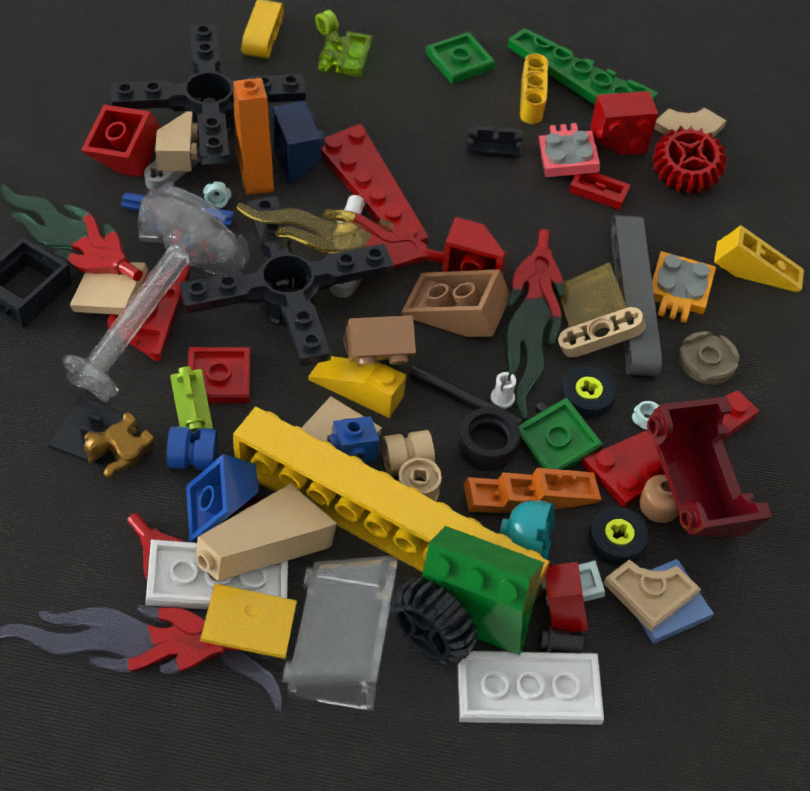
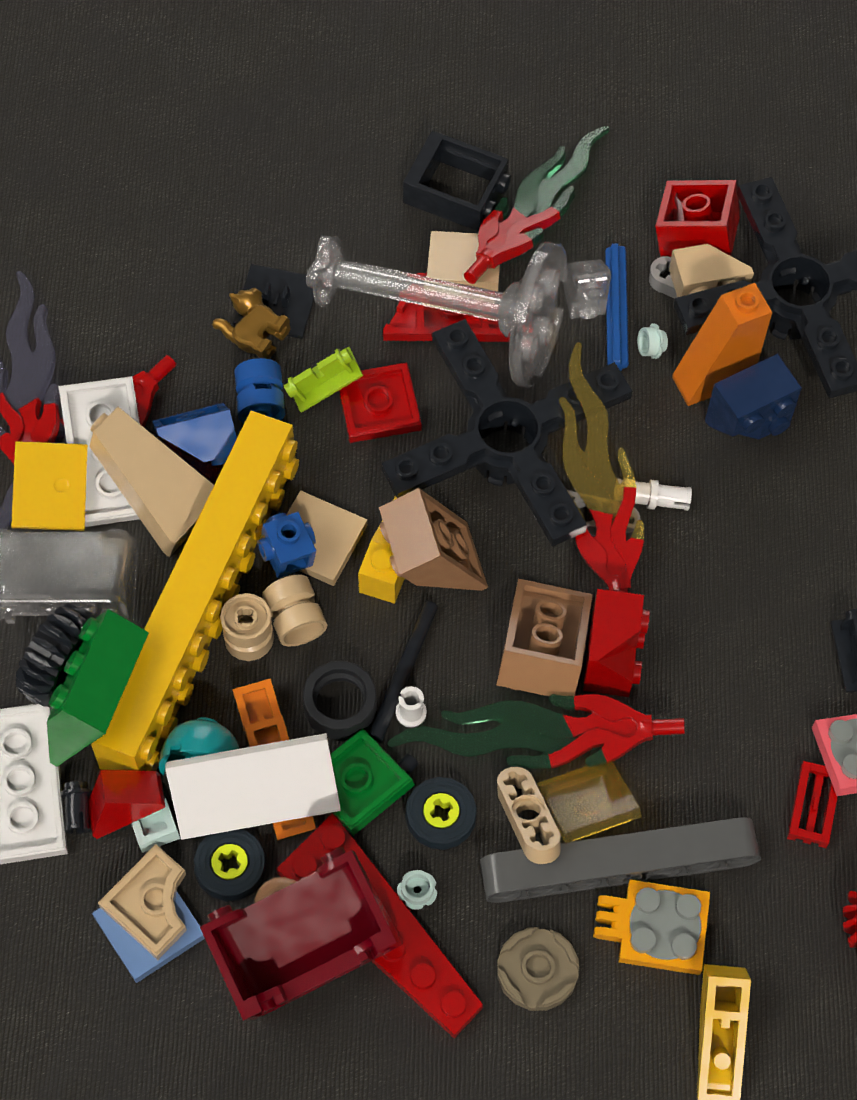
camera: 85 degrees right, 10 degrees up
(366, 175) = (750, 498): red wing -> none
(571, 492) = (253, 786): none -> white tile

